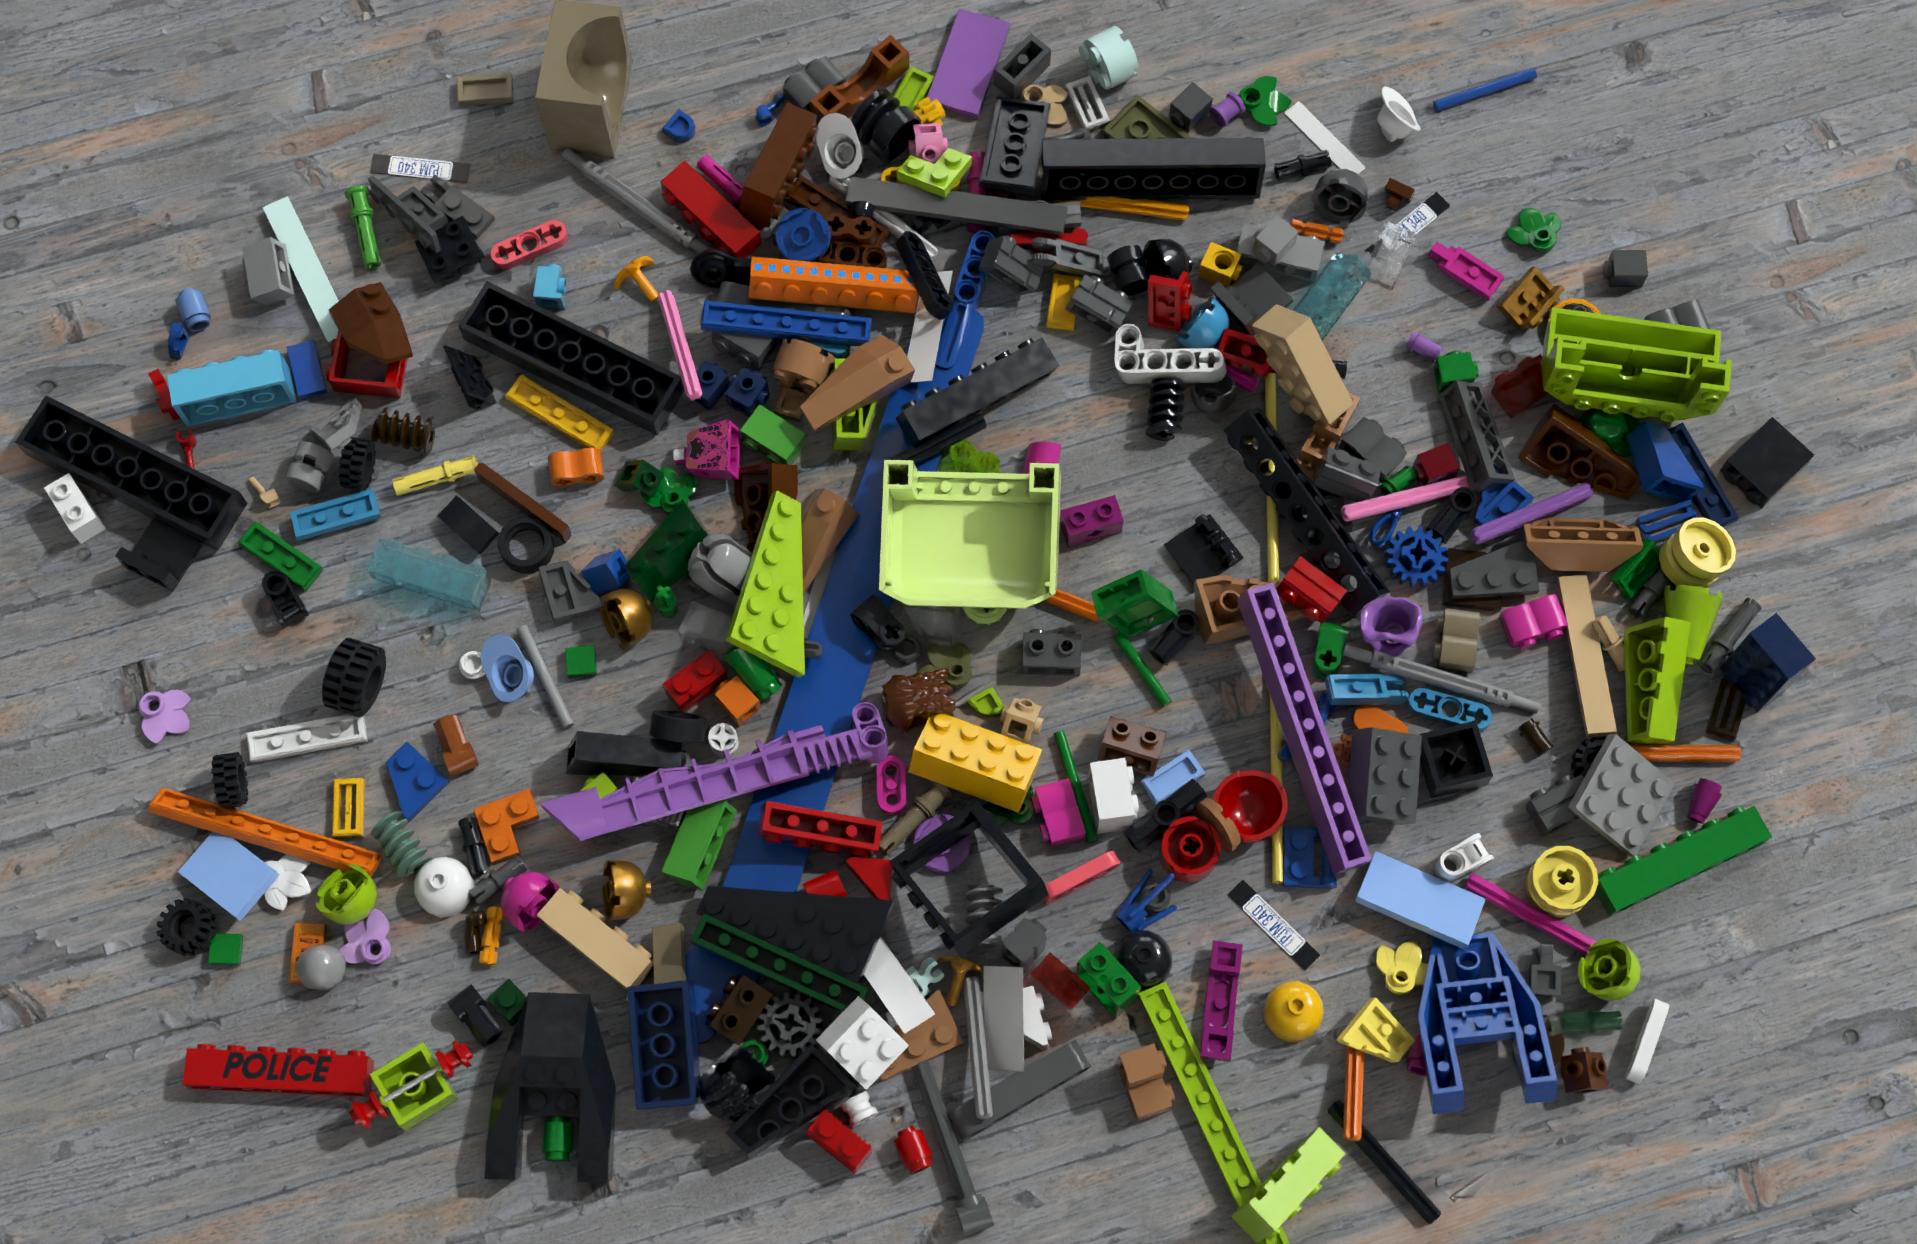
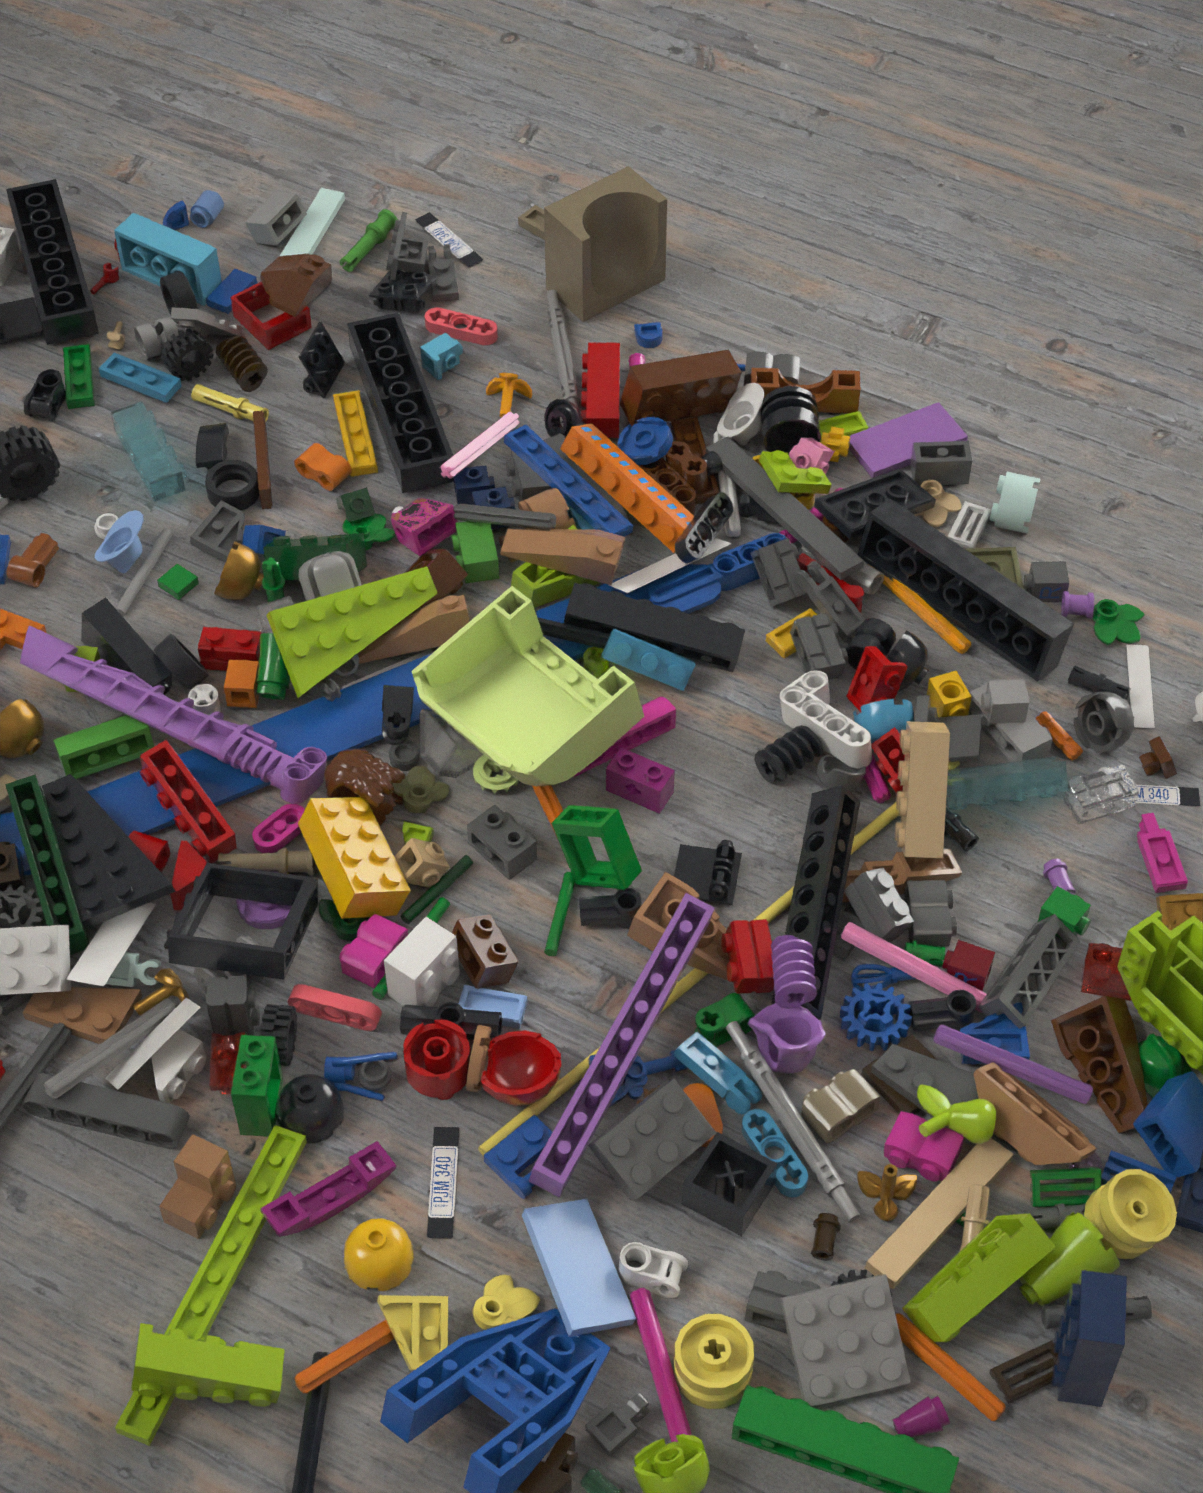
camera: 45 degrees right, 20 degrees down
(285, 416) = (177, 292): none -> black tyre
(780, 396) = (505, 516): none -> dark grey axle
(1001, 421) = (648, 659): none -> dark azure plate
(1044, 735) = (436, 889): none -> dark green bar
(1073, 931) = (280, 1022): none -> black tyre
(1359, 580) = (793, 971): none -> medium lavender piece
(1542, 662) = (890, 1187): none -> pearl gold plant
(1552, 578) = (970, 1119): none -> lime piece

